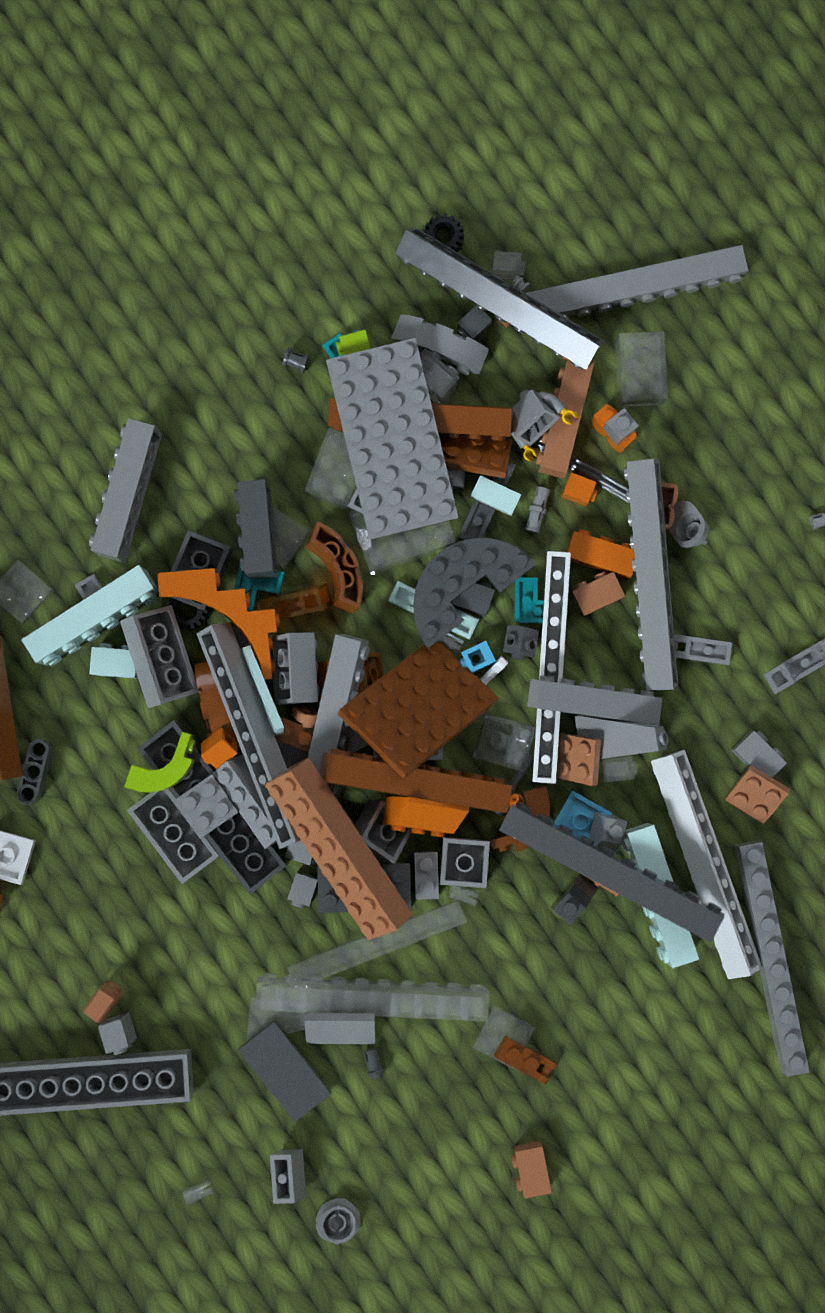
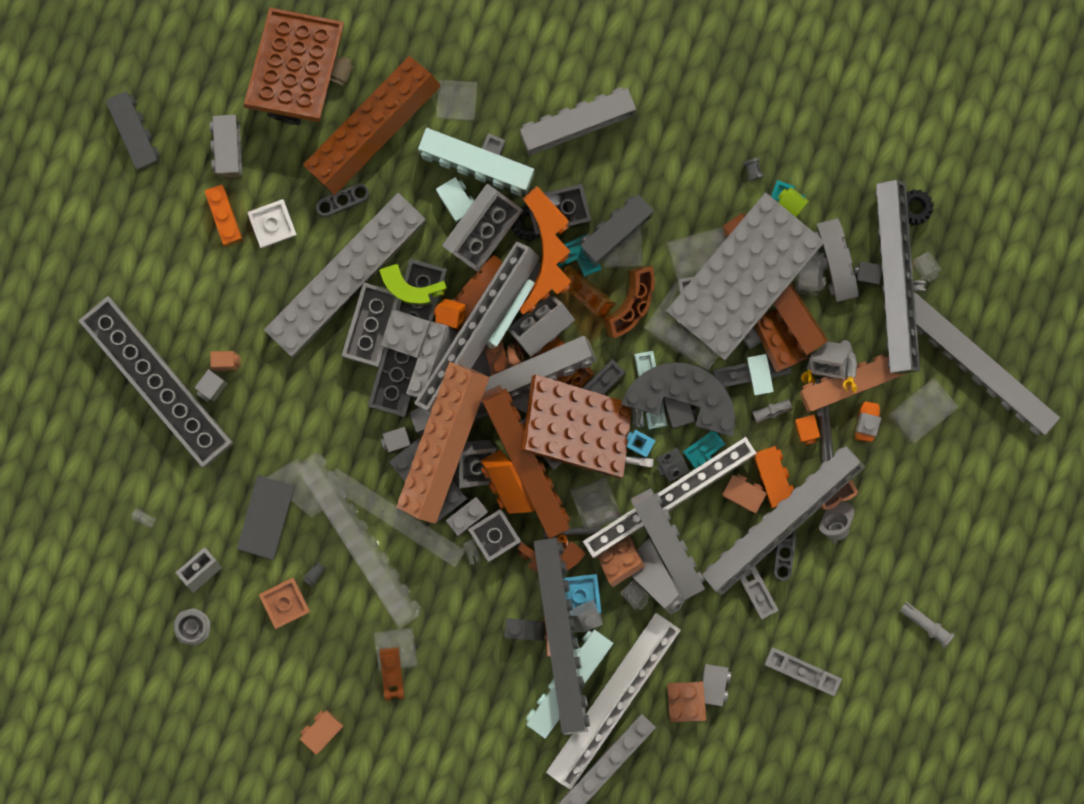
camera: 50 degrees right, 0 degrees up
(107, 824) = (345, 275): none -> light grey brick
(340, 1028) = (322, 533): light grey tile -> none
(381, 1113) = (284, 603): none -> nougat plate
(391, 645) = (605, 378): none -> dark grey tile
(692, 600) = (787, 562): none -> dark grey beam

